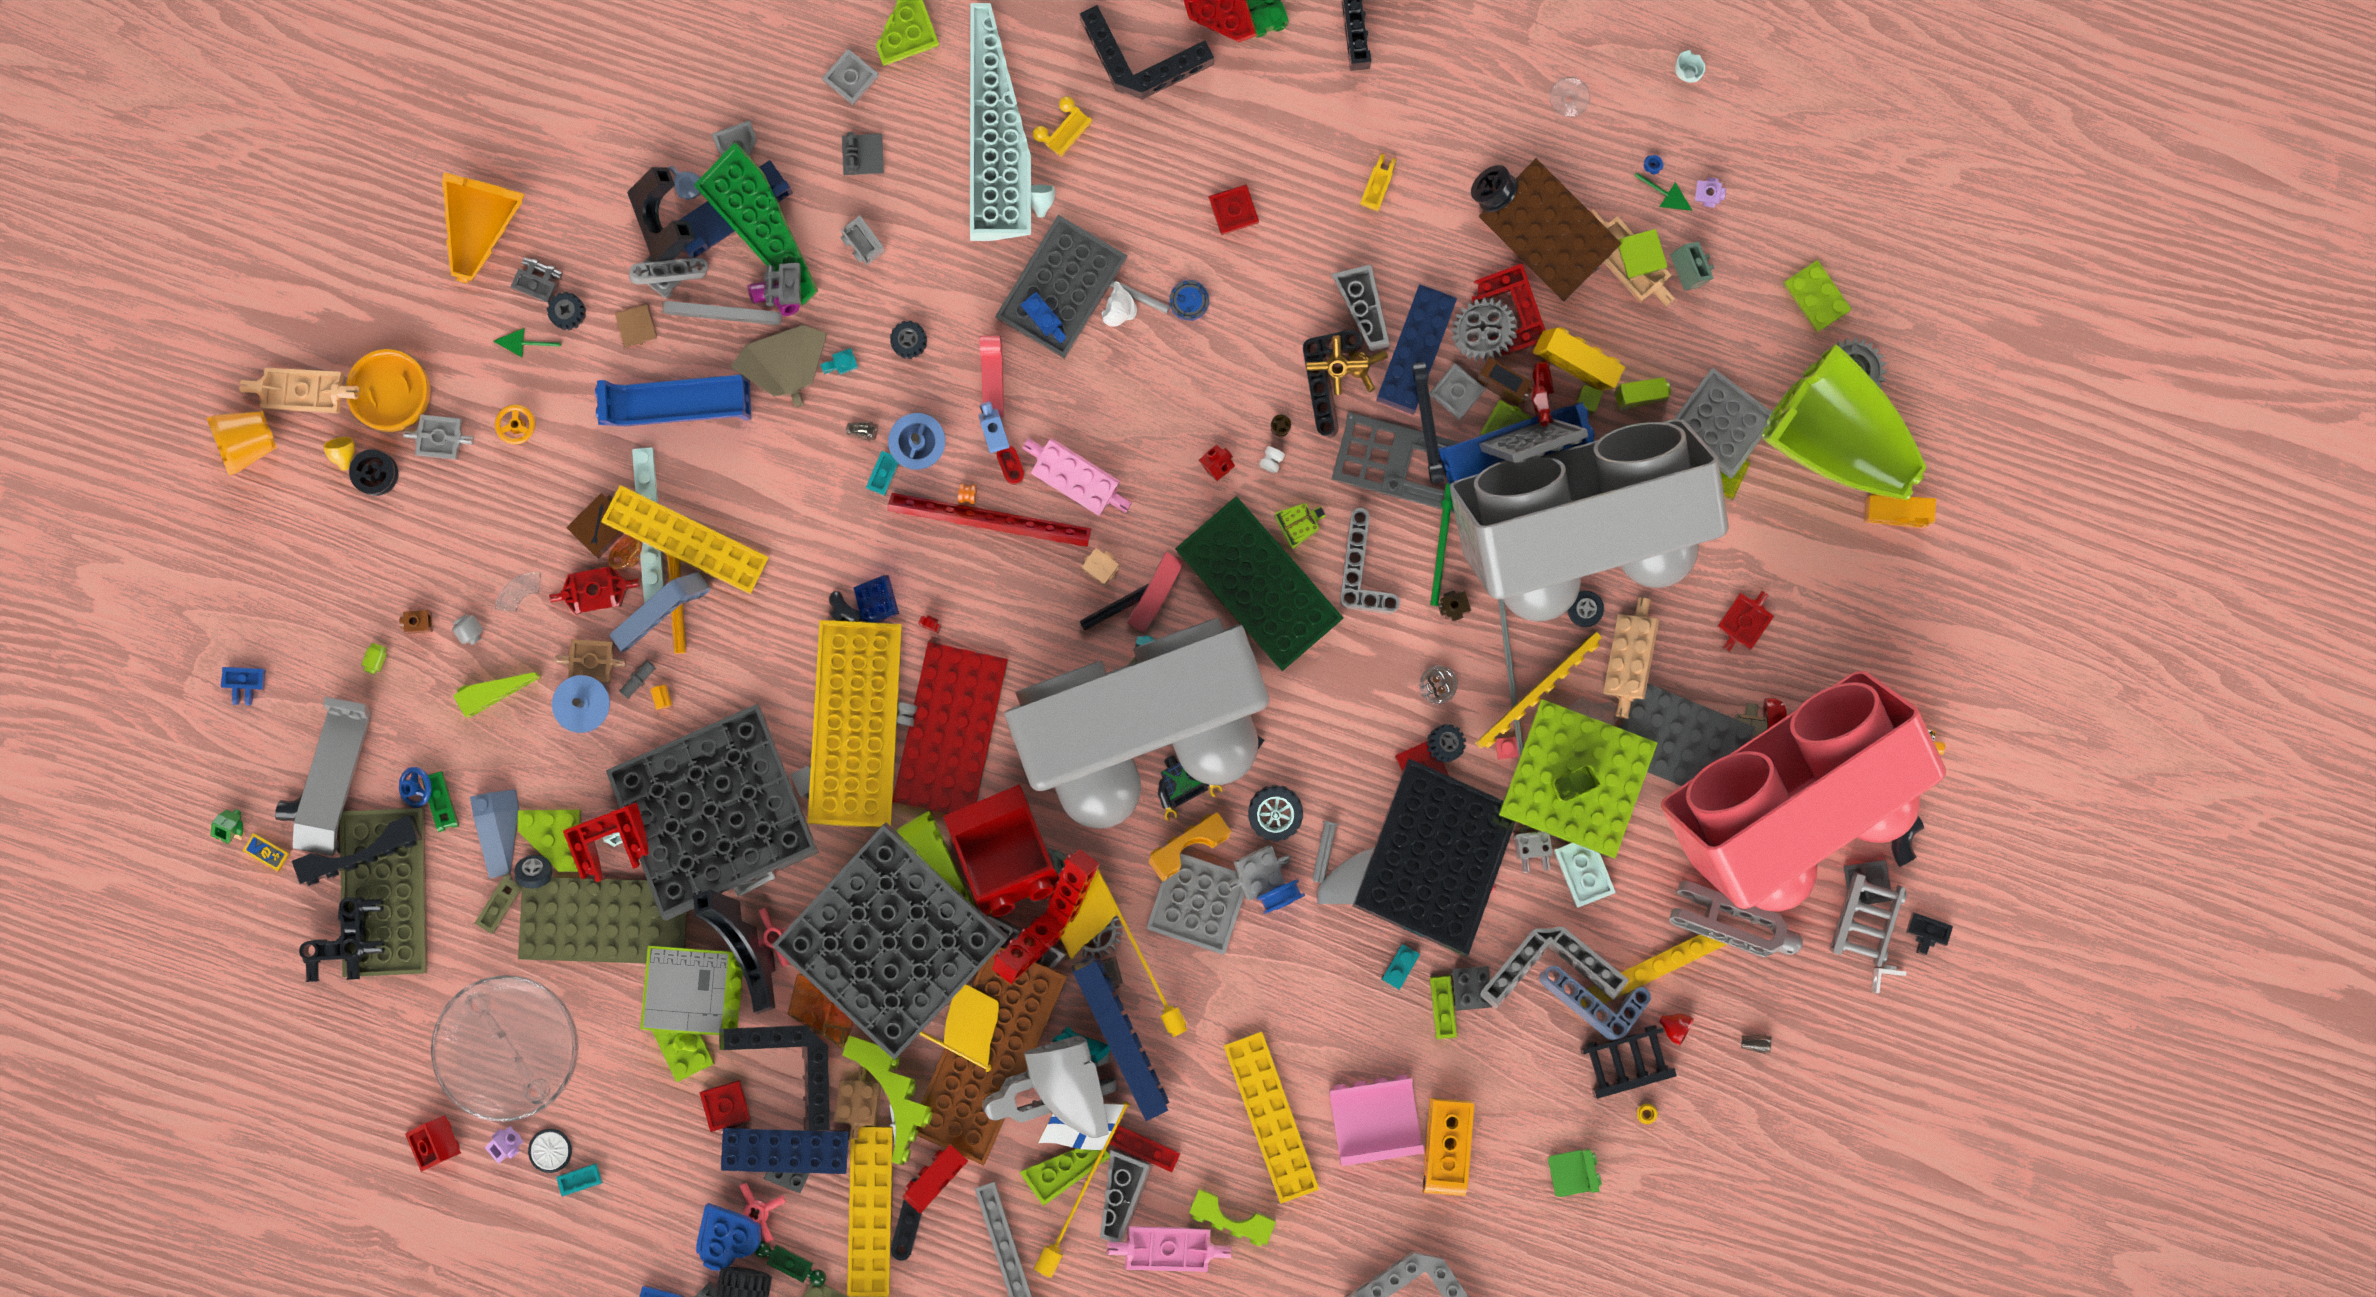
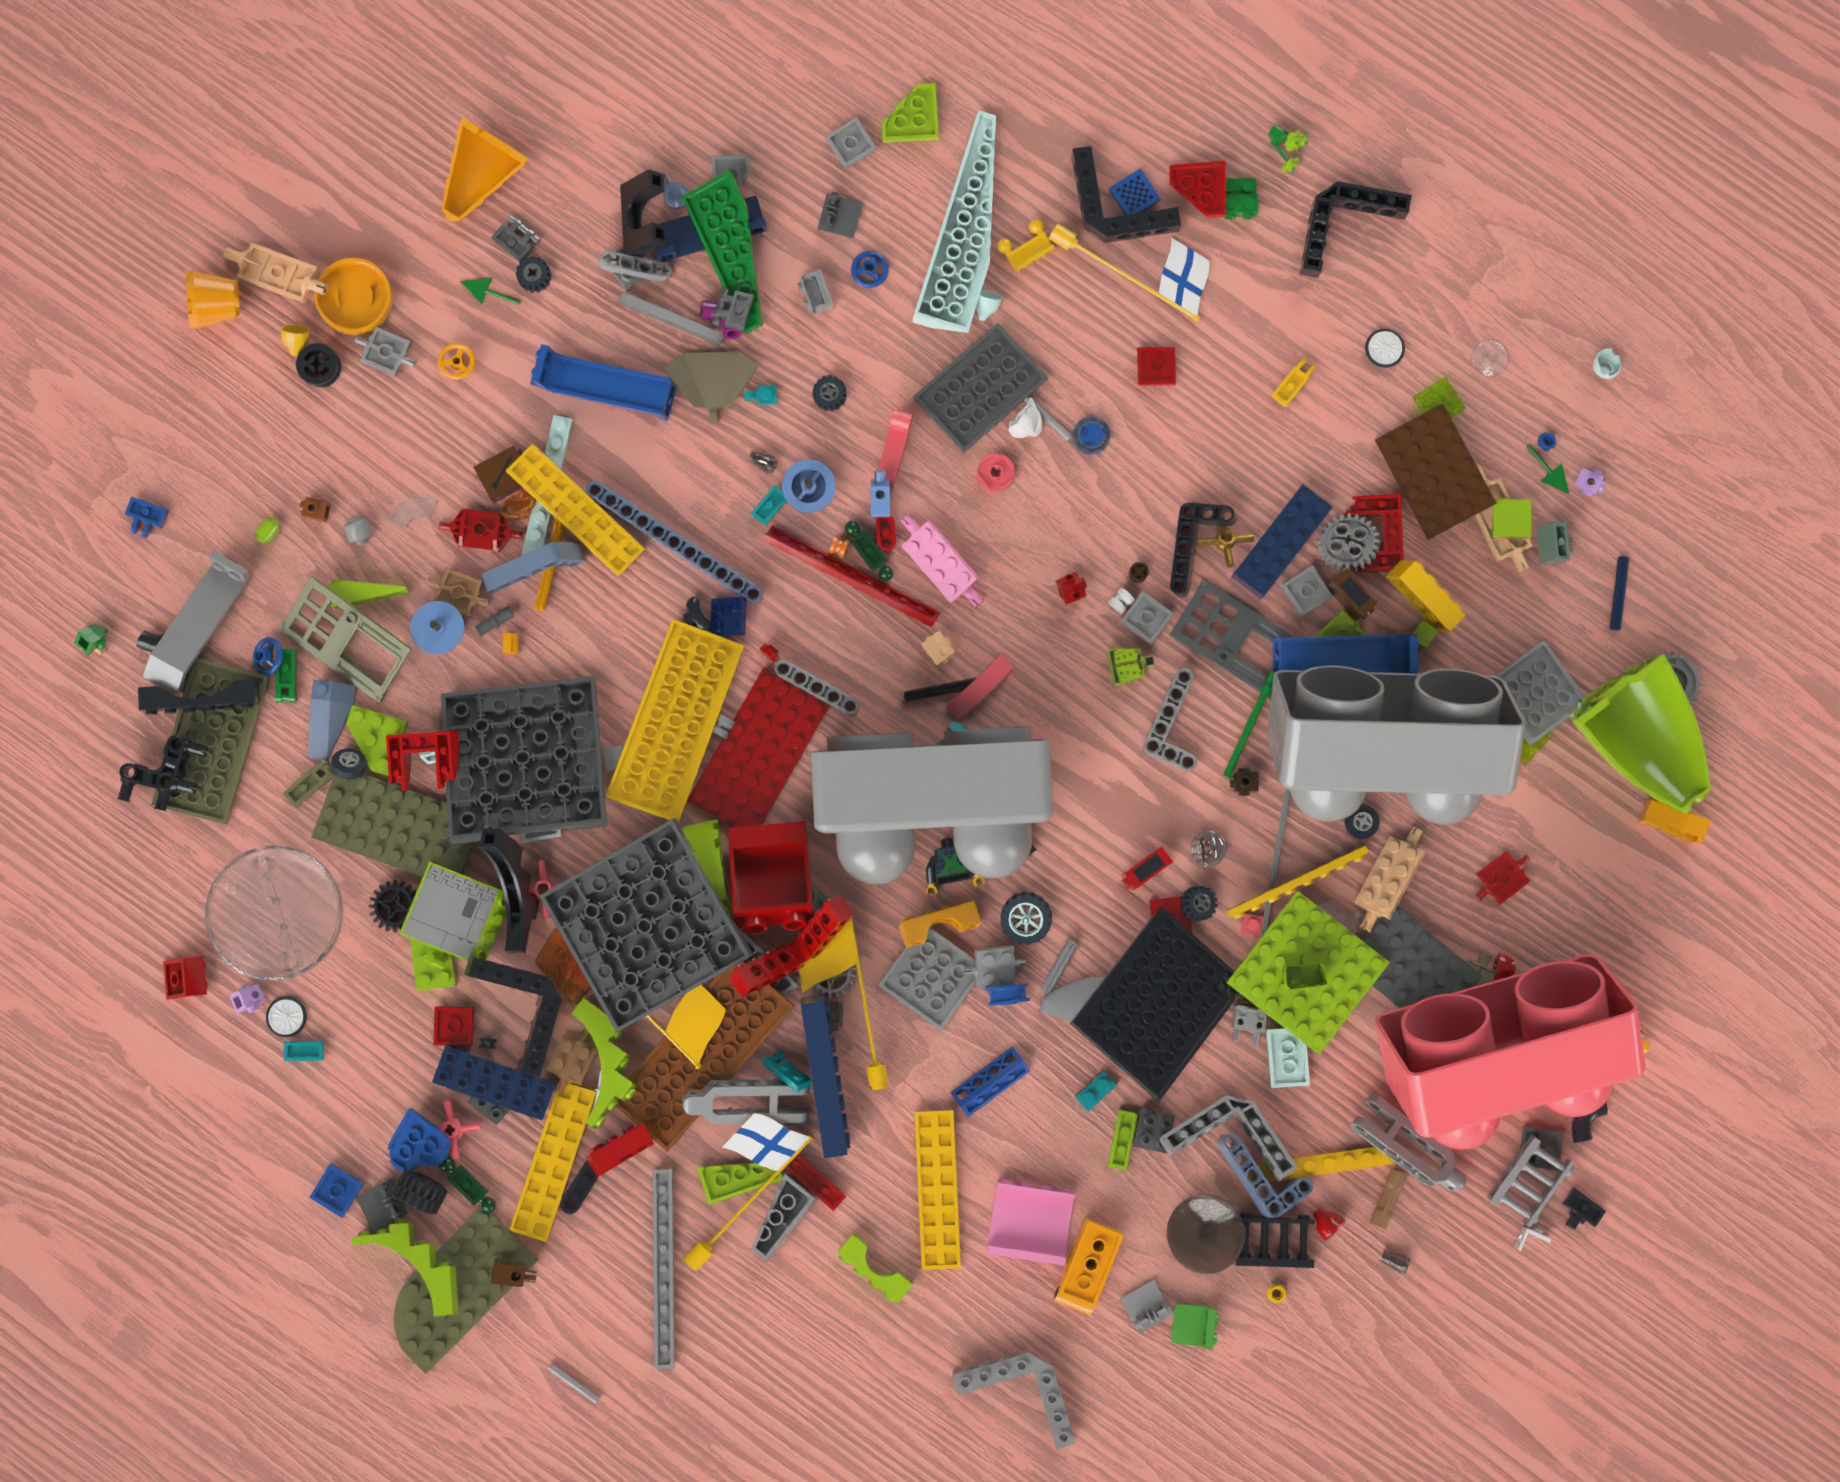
camera: 15 degrees right, 0 degrees up
(266, 852) = (118, 672): tile -> none
(484, 745) = (337, 642): none -> door
(626, 1012) = (397, 897): none -> black gear
(636, 325) = (591, 306): medium nougat piece -> none
(765, 1112) = (487, 1043): none -> black bush
(788, 537) = (668, 535): none -> sand blue beam
(909, 193) = (869, 262): none -> blue piece
(981, 638) = (810, 681): none -> light grey beam
(999, 488) = (869, 550): none -> dark green plate
(1043, 317) = (956, 410): blue plate -> none
(1069, 1084) = (765, 1103): light grey panel -> none
(1092, 371) = (984, 472): none -> coral plate
(1156, 39) = (1134, 193): none -> blue tile
(1168, 1249) = (808, 1278): bright pink plate -> none
(1231, 112) = (1180, 280): none -> flag
(1259, 583) = (1075, 708): dark green plate -> none
(1294, 992) = (992, 1084): none -> blue fence
(1303, 469) = (1146, 617): none -> light grey plate
(1337, 357) = (1206, 527): pearl gold bar -> none
(1363, 301) = (1247, 482): light grey wedge -> none
(1382, 725) = (1146, 869): none -> brick
(1421, 381) = (1277, 571): black piece -> none
(1460, 119) = (1385, 348): none -> white wheel
(1497, 177) = (1386, 422): black wheel -> none
(1519, 1168) = (1146, 1306): none -> light grey hinge
(1529, 149) = (1437, 394): none -> clear neon green plate
(1533, 441) = (1363, 656): light grey plate -> none
(1542, 388) = (1382, 614): red plate -> none
(1557, 1076) = (1206, 1233): none -> clear smoke dish
(1642, 393) = (1473, 643): lime slope -> none
(1729, 993) = (1394, 1184): none -> medium nougat axle
(1774, 296) = (1619, 593): none -> dark blue axle
(1817, 296) = (1658, 605): lime plate -> none

